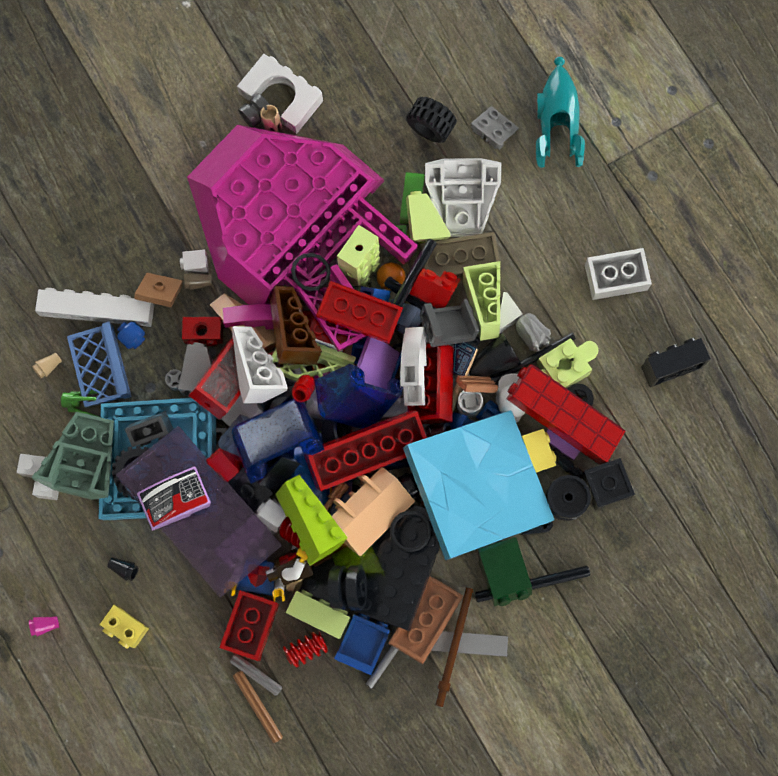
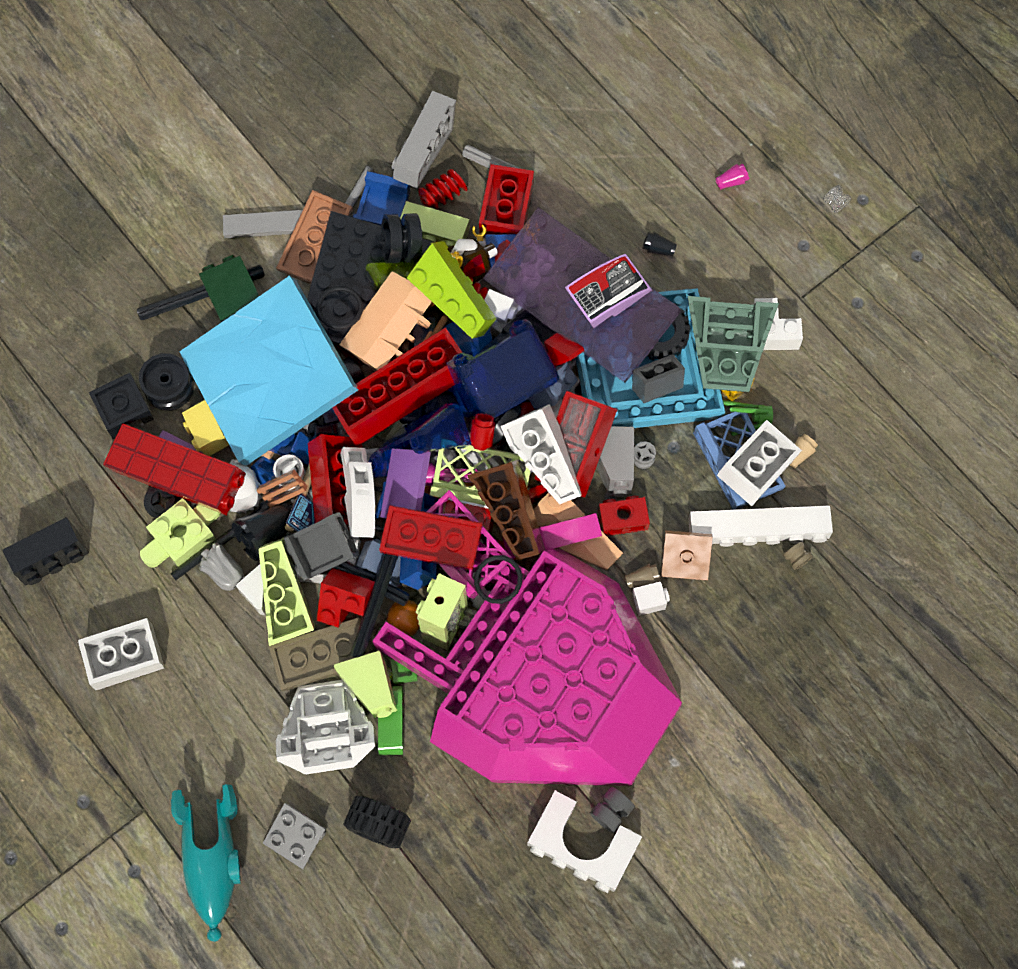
camera: 170 degrees right, 5 degrees down
(71, 279) = (798, 556): none -> dark tan wheel
(82, 348) = (759, 462): none -> white brick
(124, 627) = (643, 186): light yellow brick -> none
(131, 335) = (708, 497): blue head -> none
(257, 706) = (485, 133): medium nougat axle -> none
(271, 118) = (588, 795): tan arm -> none
(313, 695) = (425, 140): none -> light grey wedge
(444, 685) = (287, 177): reddish brown bar -> none
(566, 464) = (171, 425): black axle -> none

